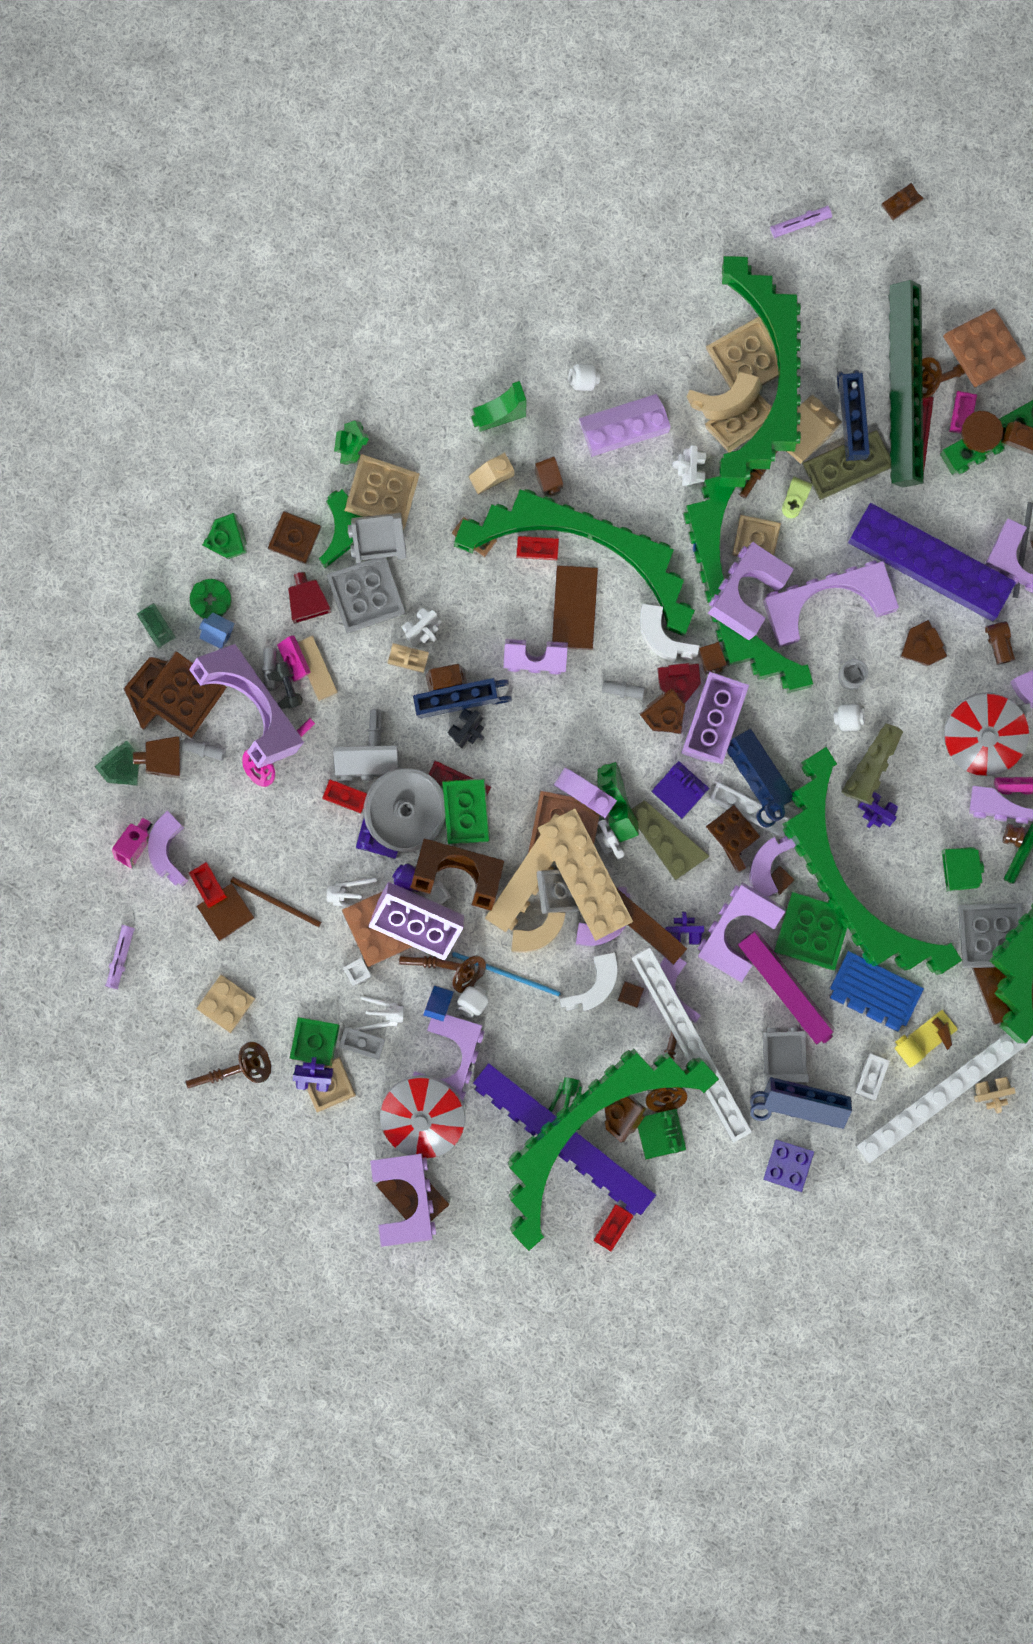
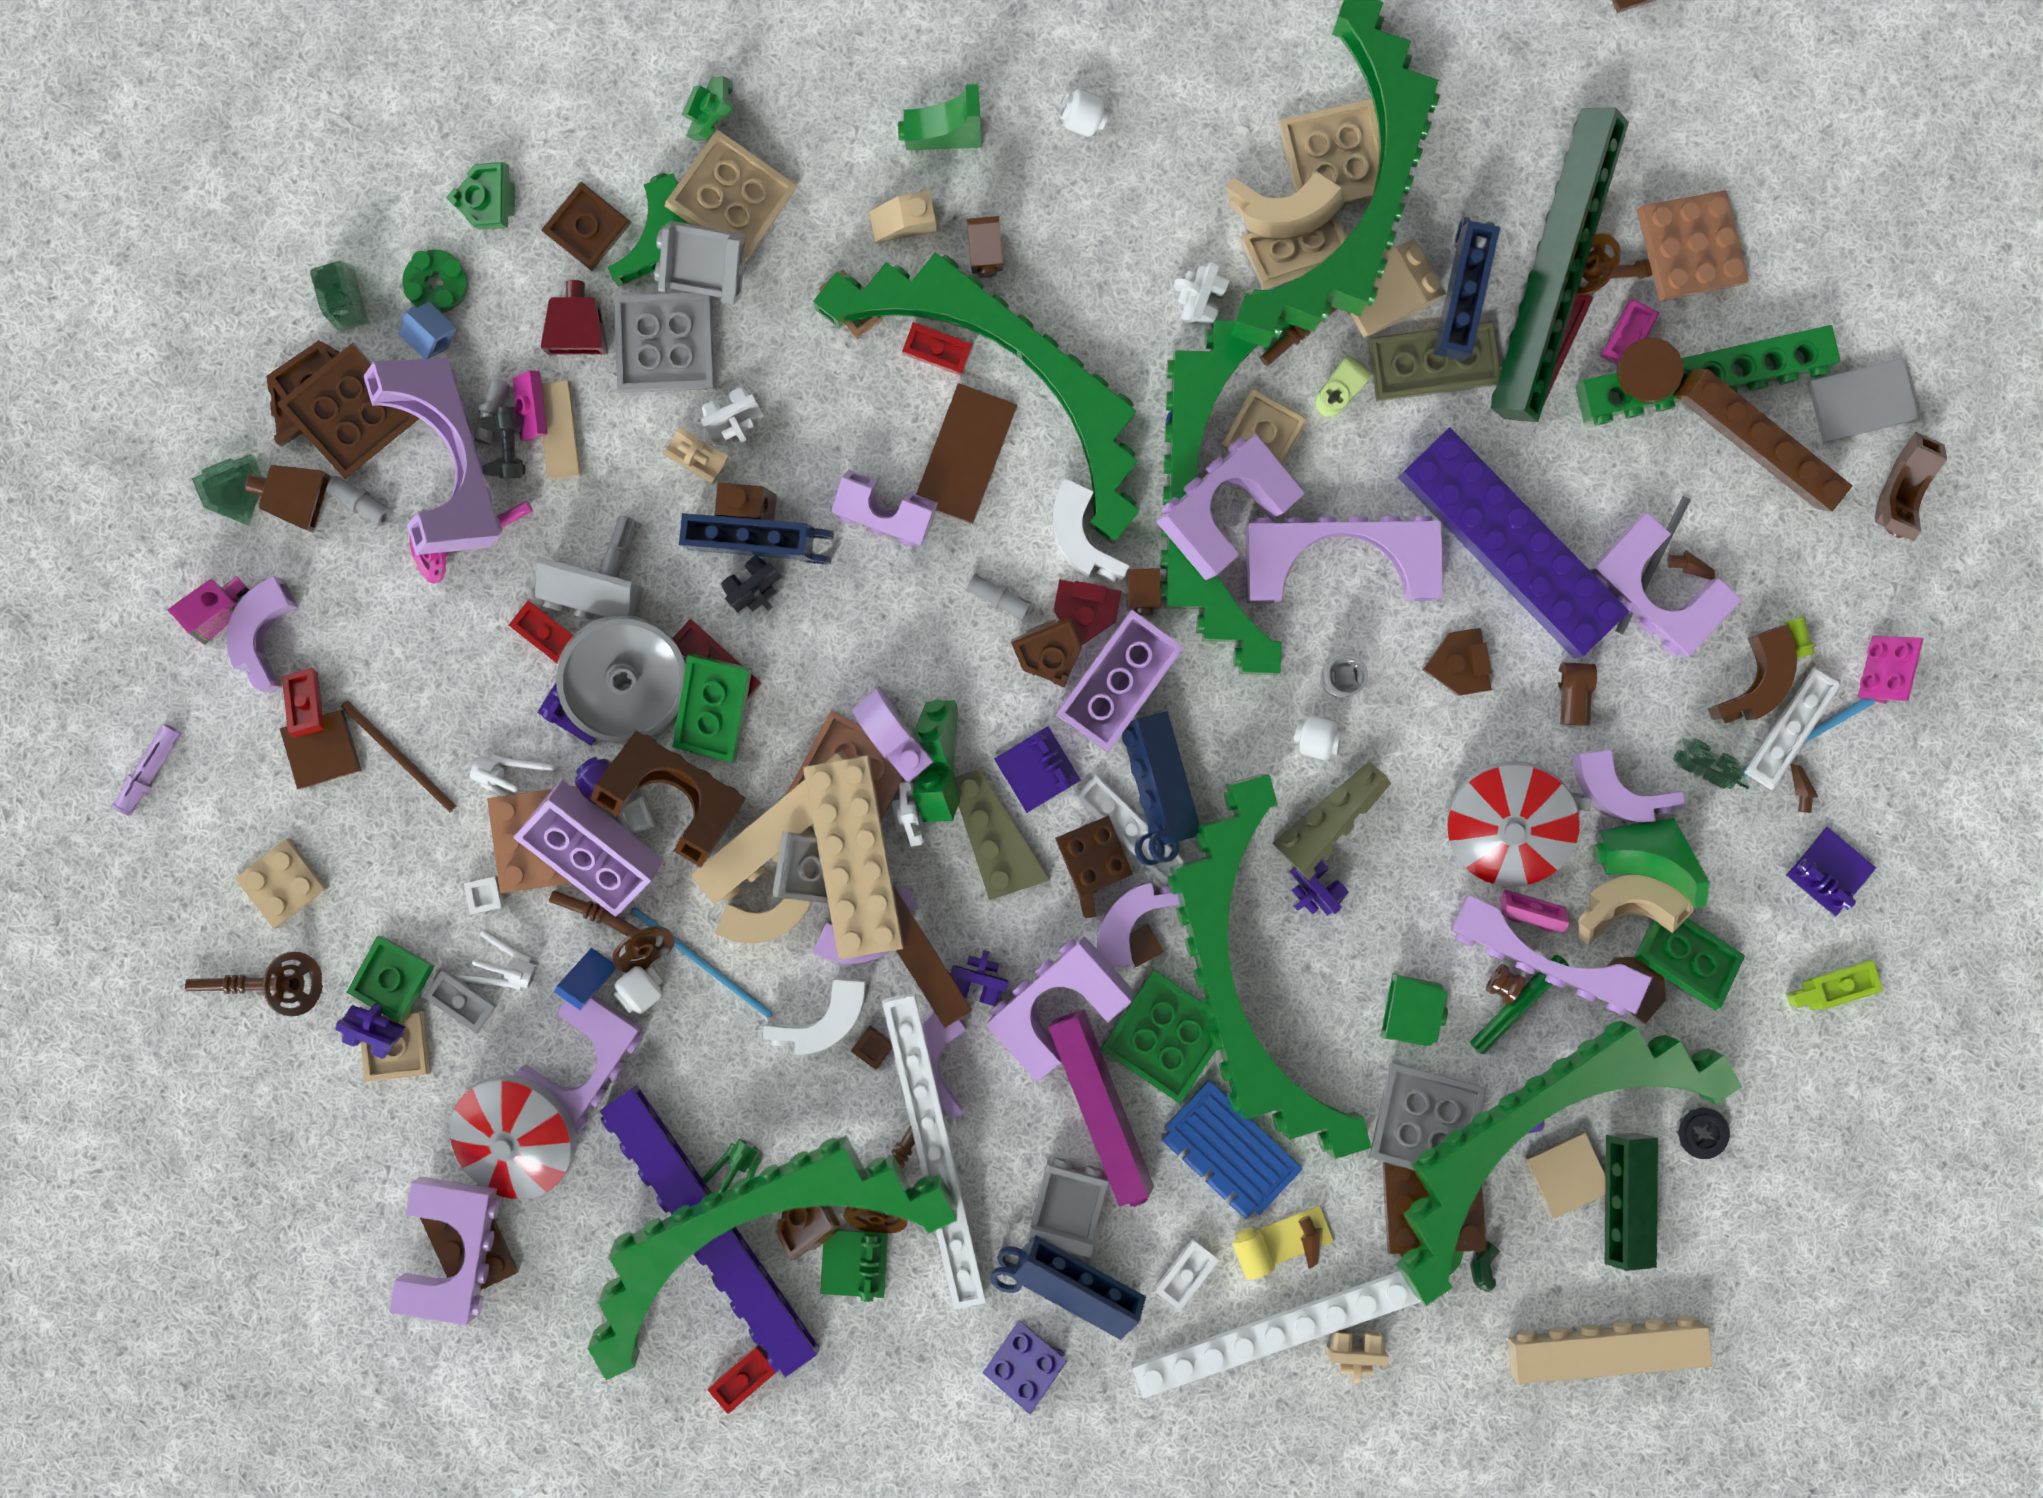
camera: 15 degrees right, 5 degrees up
(625, 425) = (1122, 203): lavender slope -> none

